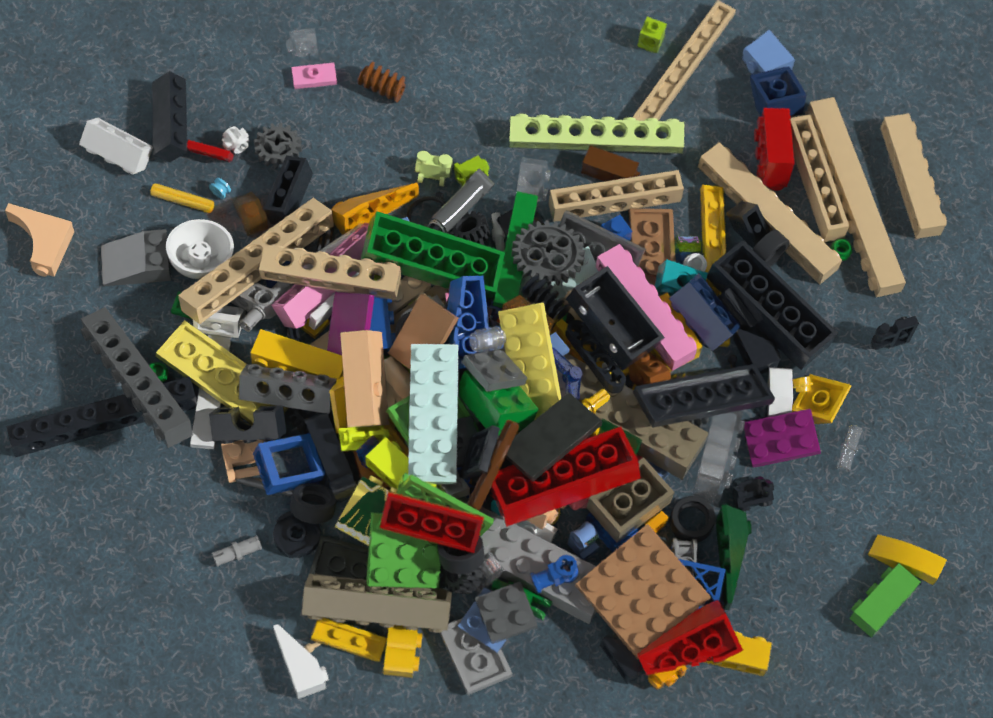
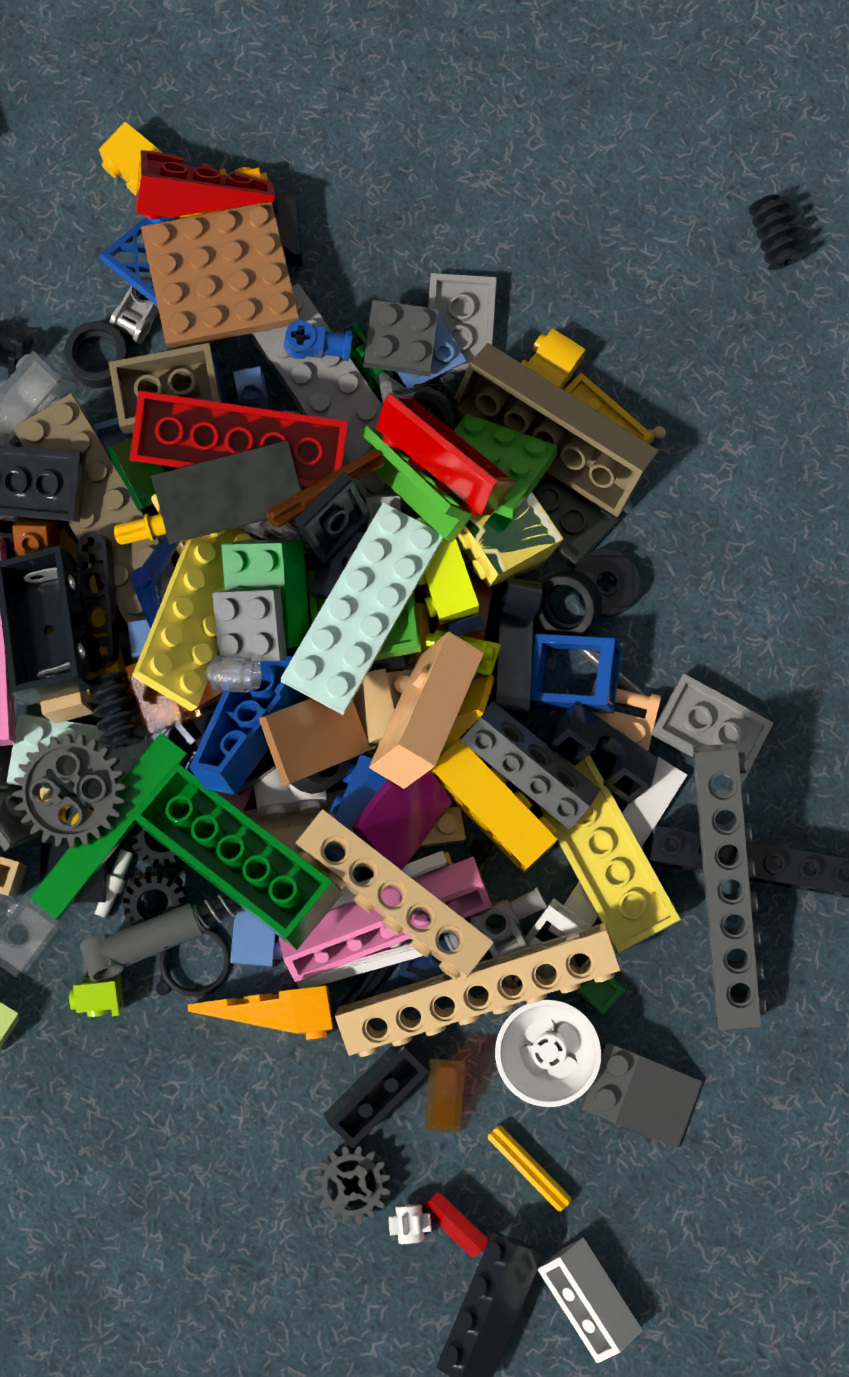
camera: 145 degrees left, 15 degrees up
(49, 237) = (750, 1194): light nougat arch -> none
(160, 370) = (687, 902): green plate -> none
(187, 476) = (705, 717): none -> light grey plate
(220, 188) = (469, 1154): medium azure bush -> none
(237, 550) = (692, 599): light grey pin -> none
(301, 665) = (681, 409): white slope -> none
(302, 43) = (228, 1349): clear brick -> none
(314, 75) = (238, 1286): bright pink plate -> none
(382, 82) = (143, 1217): dark orange piece -> none
(433, 167) = (147, 1033): yellowish green piece -> none
(732, 537) = (71, 292): dark green wedge -> none

